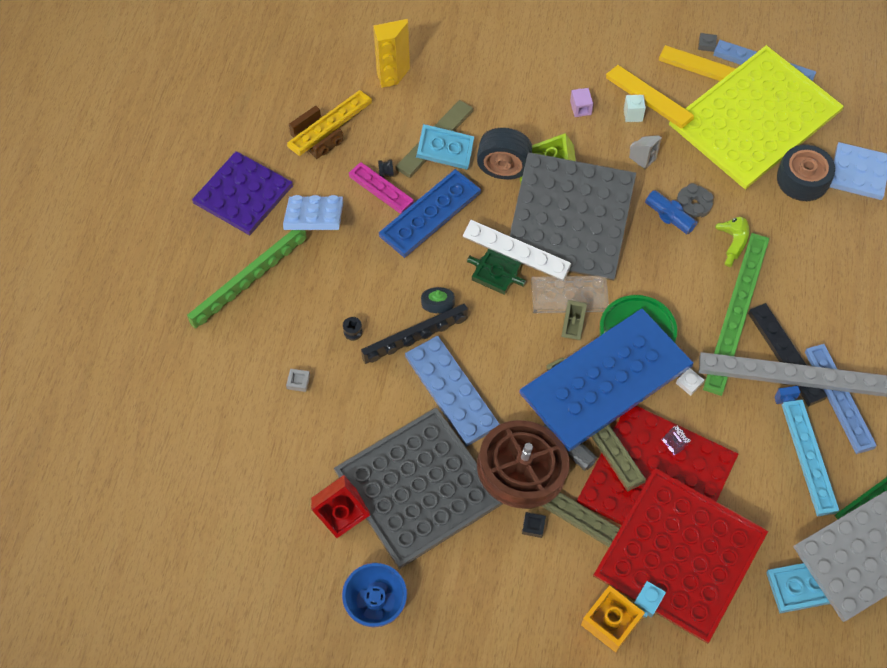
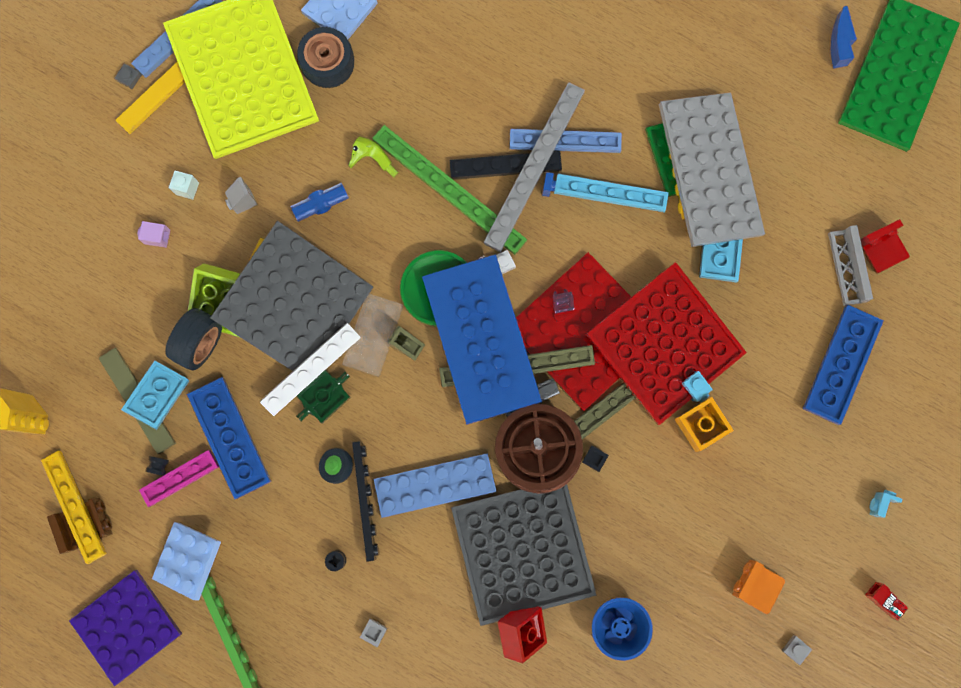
camera: 70 degrees left, 20 degrees up
(652, 97) = (179, 161): yellow tile -> none
(698, 193) = (311, 164): dark grey plate -> none

